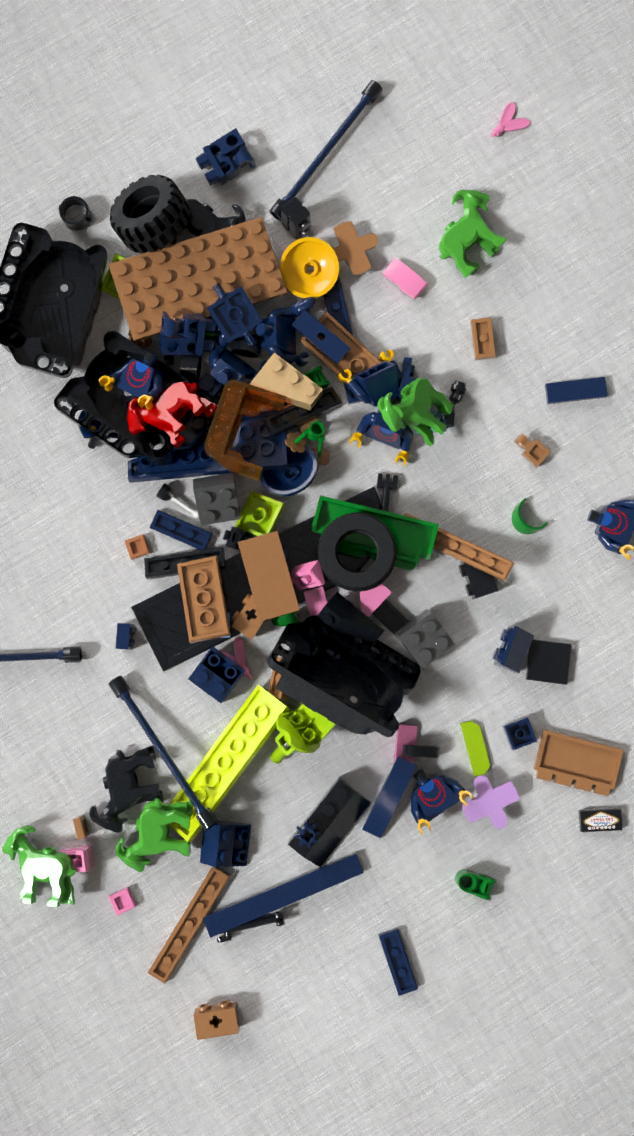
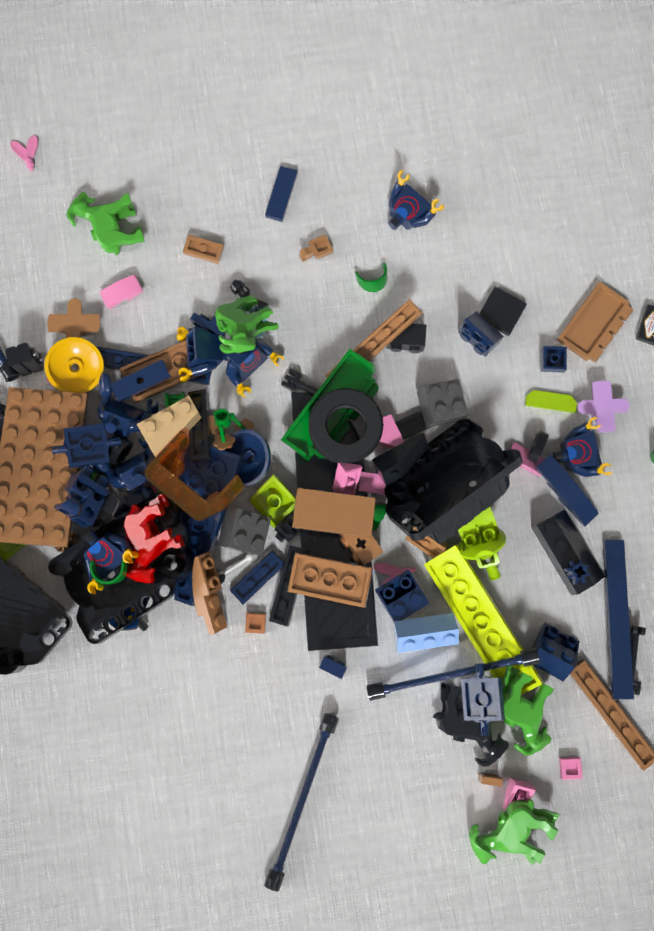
camera: 70 degrees left, 5 degrees down
(114, 383) = (95, 575): none -> green helmet
(146, 486) = (205, 587): none -> medium nougat slope
(149, 788) = (482, 699): none -> plate
(190, 710) = (426, 632): none -> light blue slope

